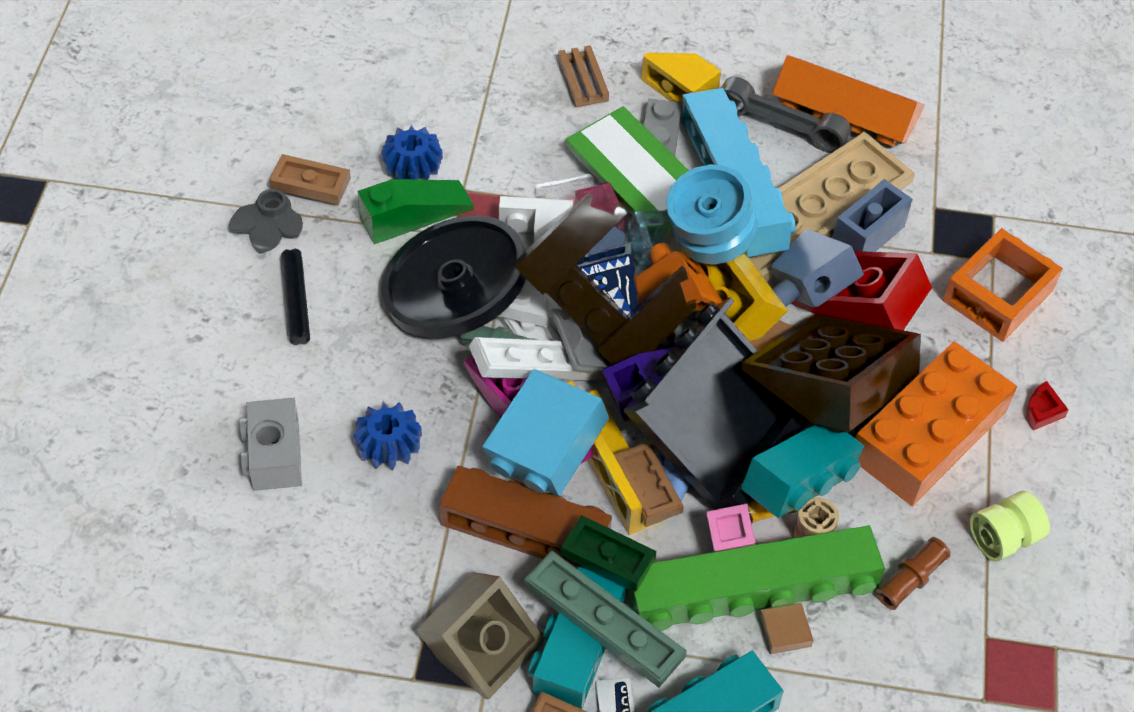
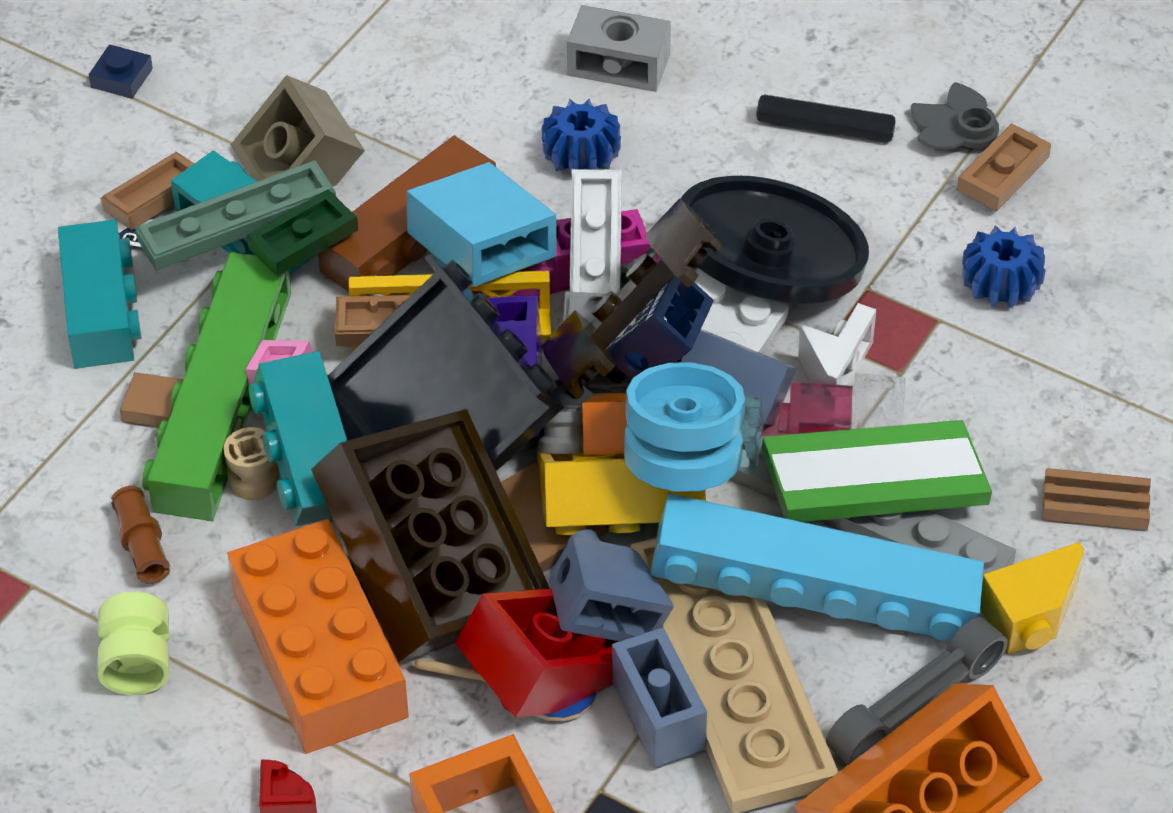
camera: 115 degrees right, 5 degrees down
(408, 205) = (918, 246): green slope -> none

